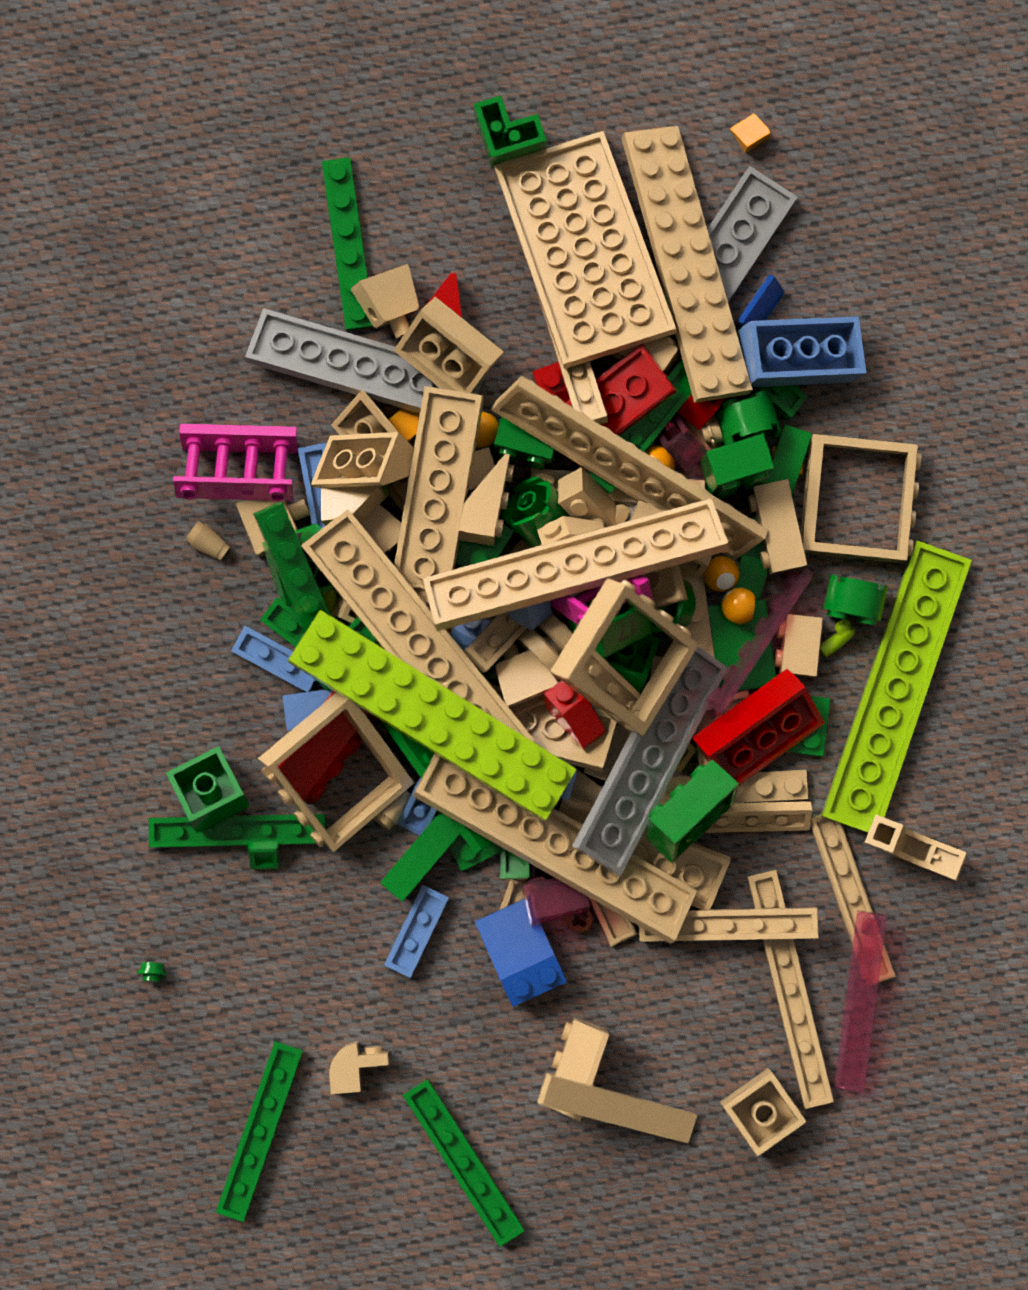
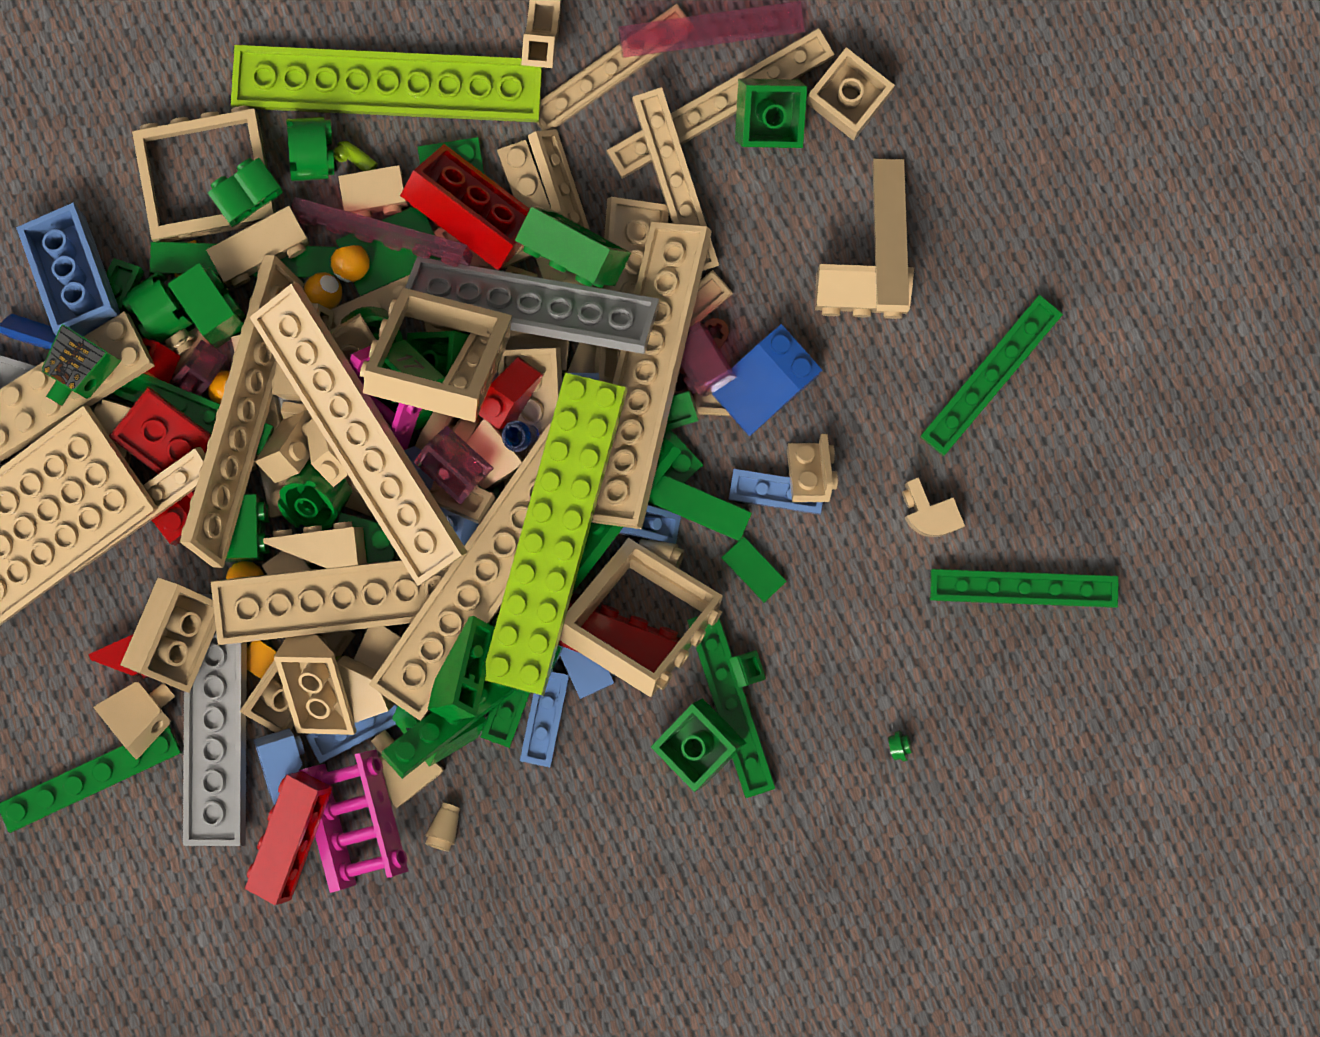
camera: 110 degrees left, 0 degrees up
(239, 400) = (288, 837): none -> brick
(310, 413) = (278, 756): none -> medium blue slope
(330, 595) = (462, 675): none -> green slope
(352, 888) = (753, 569): none -> green tile
(424, 968) = (811, 470): none -> tan bracket
(521, 642) = (453, 465): none -> clear pink brick
(532, 710) = (519, 435): none -> clear blue cone
(713, 332) = (76, 365): none -> torso
(765, 1032) = (770, 113): none -> green brick
(831, 528) = (244, 191): none -> green brick

